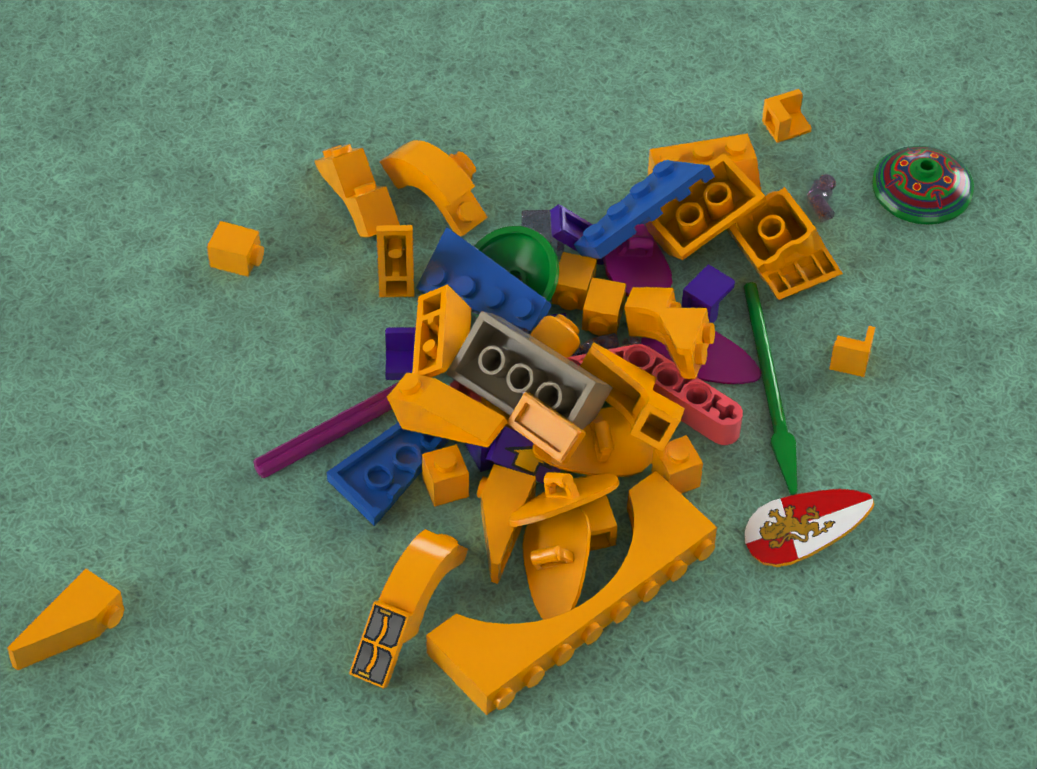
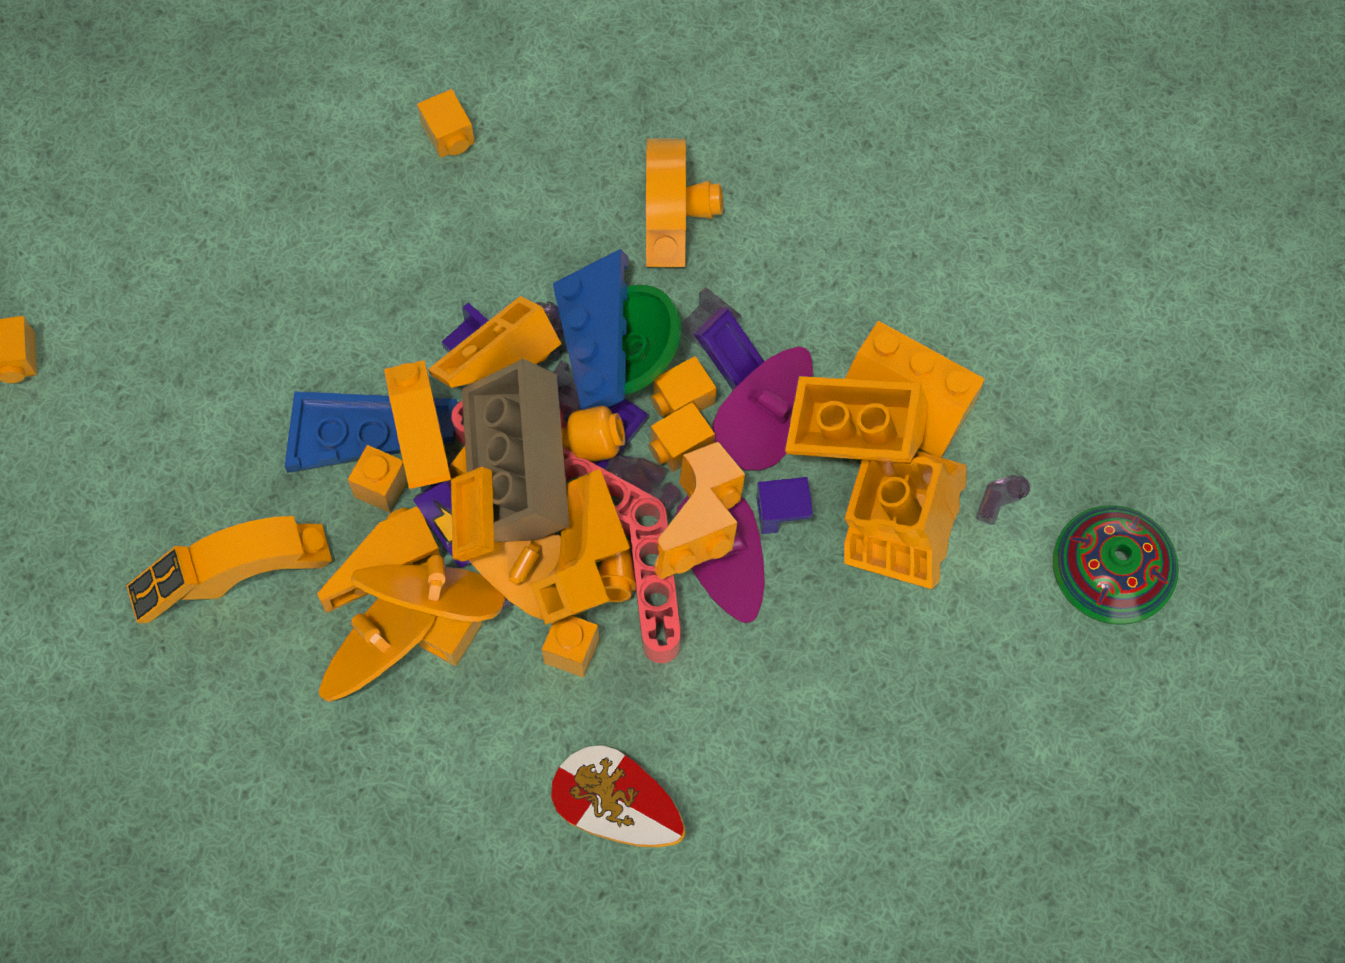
camera: 45 degrees right, 15 degrees up
(323, 433) = (334, 352): magenta axle -> none
(353, 181) = (602, 138): light orange arch -> none
(395, 260) = (545, 245): light orange slope -> none
(501, 659) = (483, 702): light orange arch -> none
(641, 206) = (794, 371): blue wing -> none
(782, 441) = (698, 700): green piece -> none
(784, 116) = (1058, 389): light orange panel -> none
(851, 354) = (850, 674): light orange panel -> none

